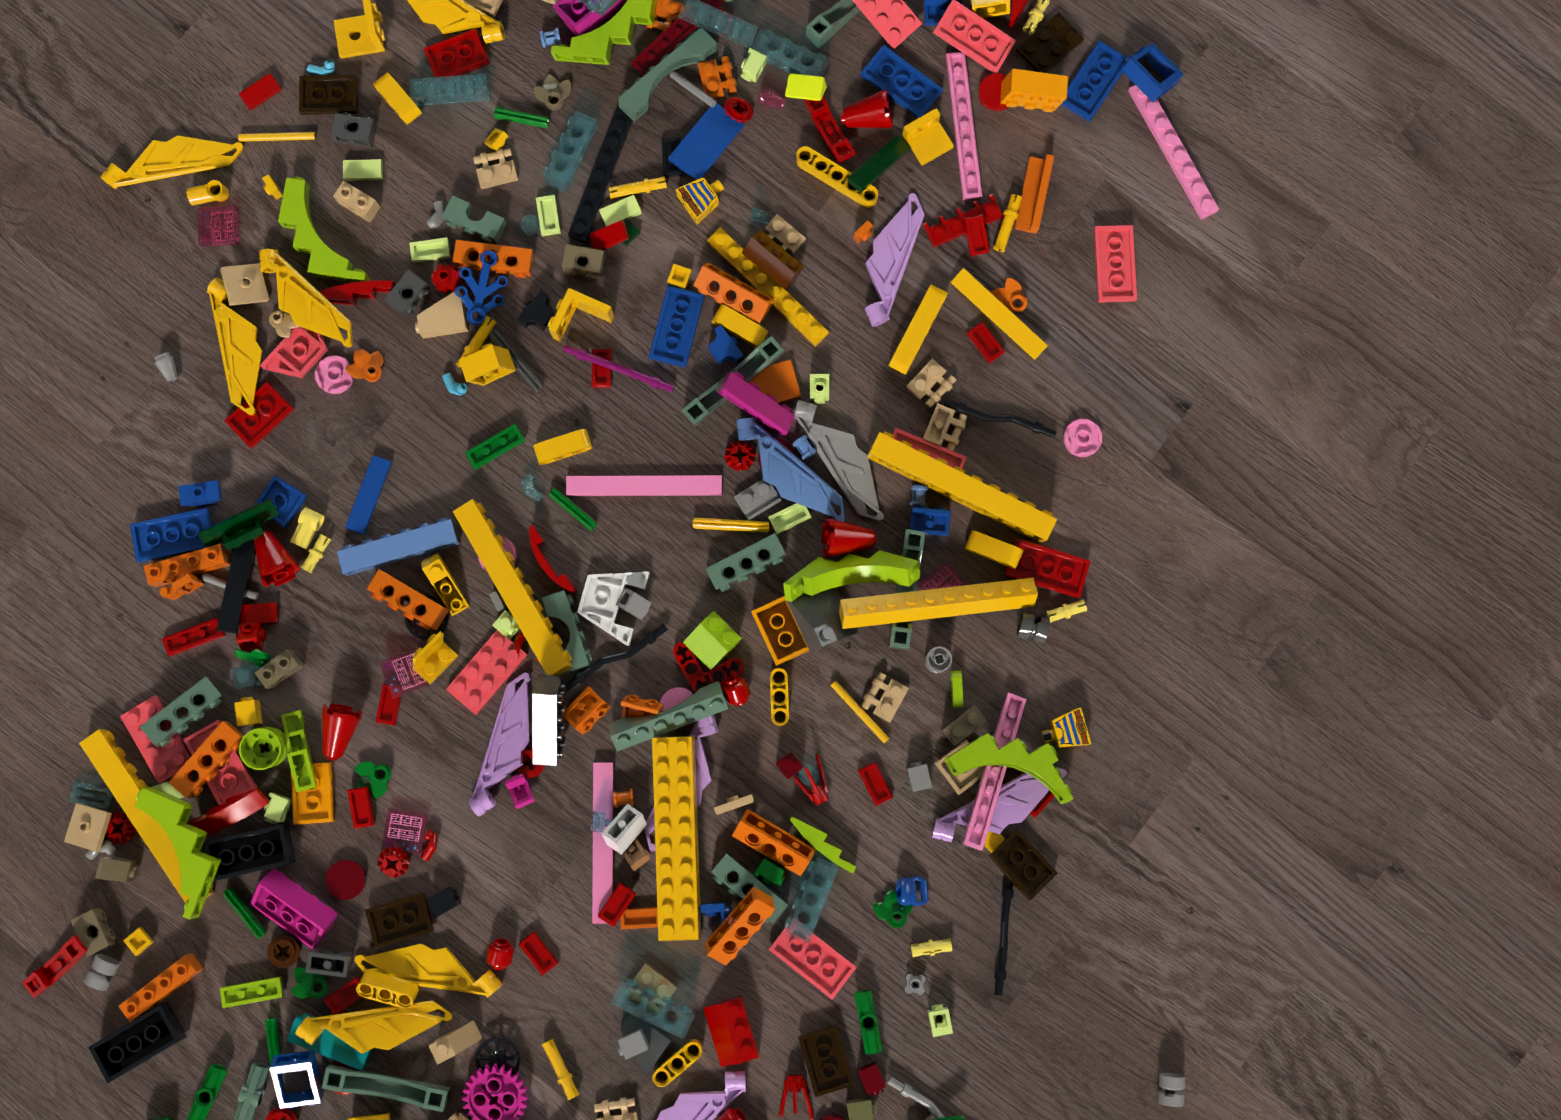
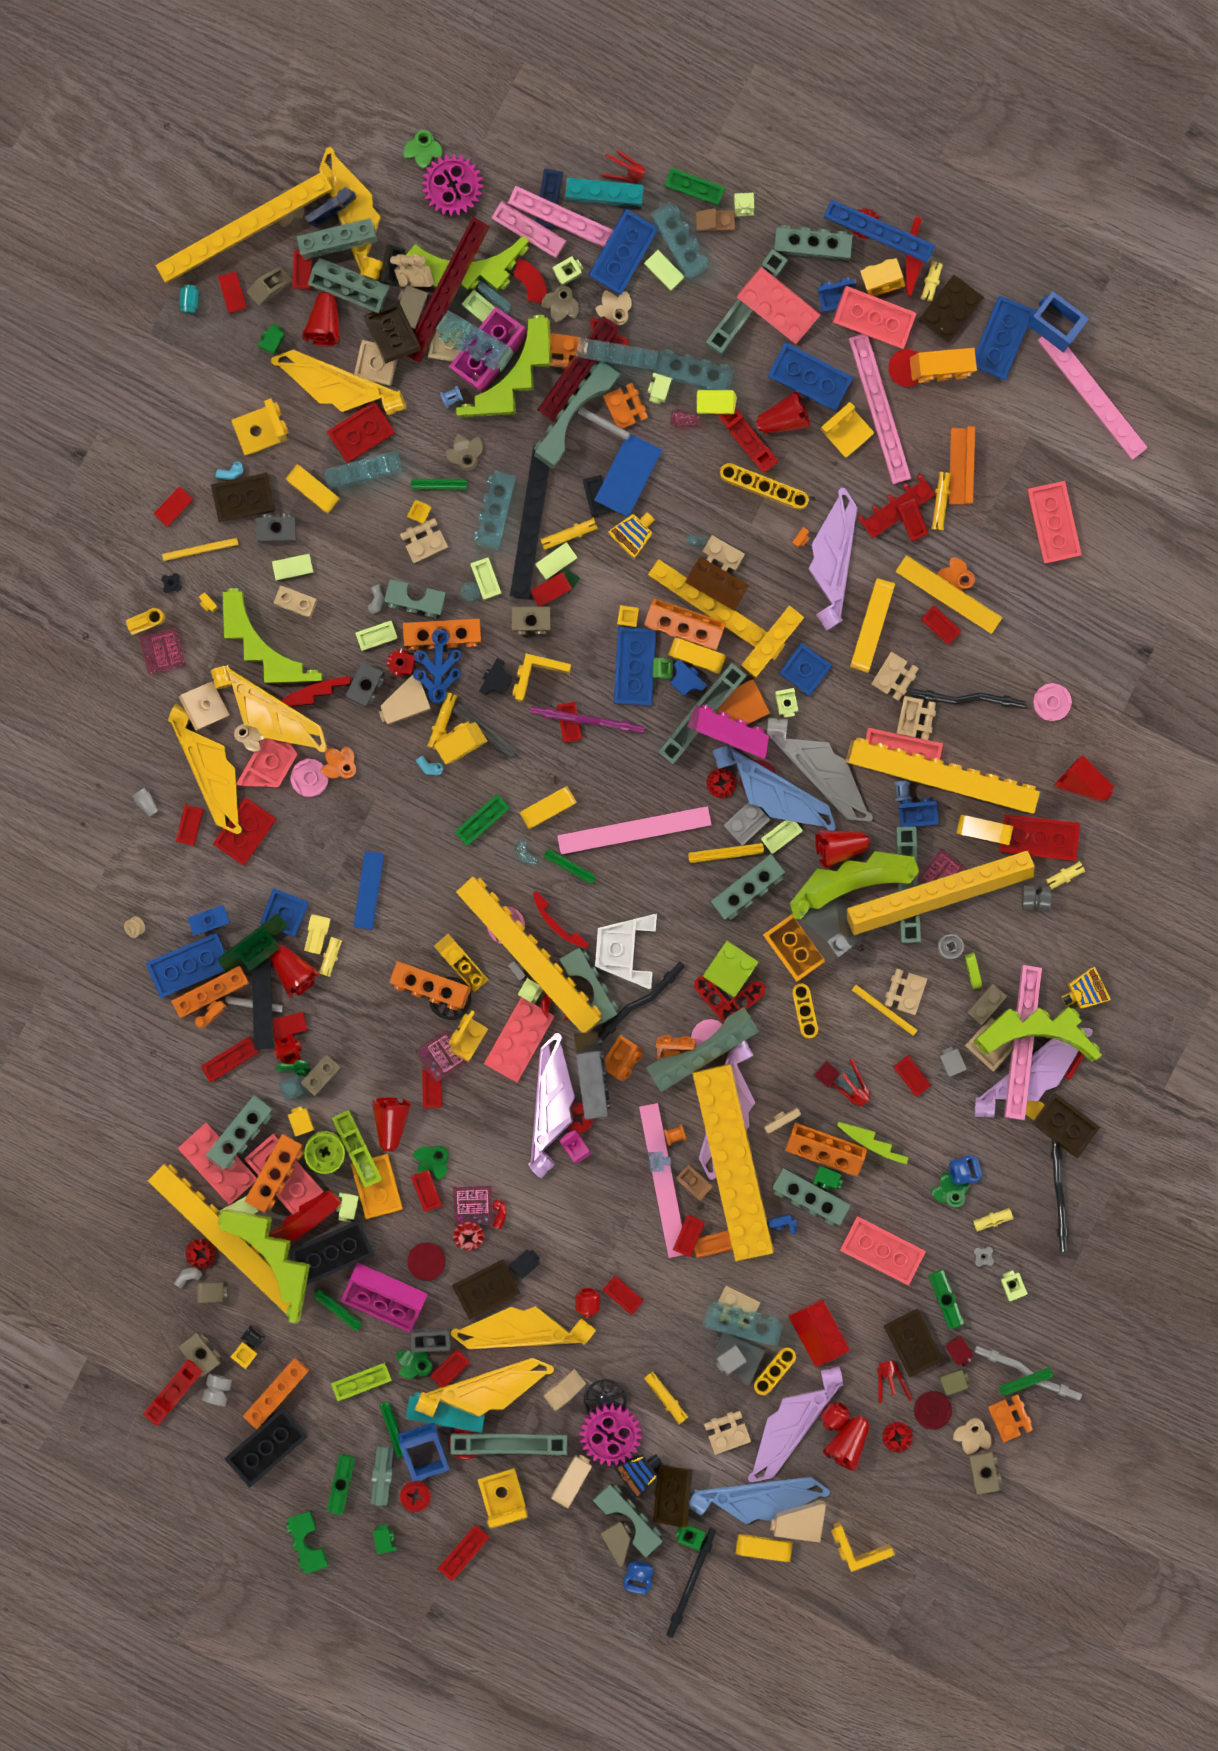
camera: 10 degrees left, 5 degrees up
(87, 827) = (172, 1258): tan plate -> none
(108, 798) = (166, 1220): clear light blue tile -> none
(127, 487) = (134, 927): none -> tan wheel
(151, 924) = (252, 1337): none -> black bush
(173, 158) = (103, 591): yellow wing -> none
(206, 398) = (189, 825): none -> red tile
(245, 167) = (176, 584): none -> black plate
(274, 951) = (381, 1329): reddish brown gear -> none
(387, 989) = (489, 1354): yellow beam -> none
(398, 547) = (409, 936): medium blue brick -> none
(624, 829) = (682, 1163): white brick -> none
(633, 603) = (648, 948): light grey brick -> none
(703, 332) = (662, 668): none -> bright green plate
(736, 690) = (762, 1012): red head -> none
(740, 926) = (809, 1233): orange brick -> none
(743, 106) = (657, 431): red gear -> none
(804, 447) = (783, 763): medium blue bush -> none
(826, 317) = (772, 642): none -> yellow arch
(828, 873) = (871, 1226): clear light blue brick -> none
(844, 360) = (805, 669): none -> blue tile
(878, 163) = (803, 466): dark green tile -> none
(1103, 520) = (1085, 781): none -> red slope

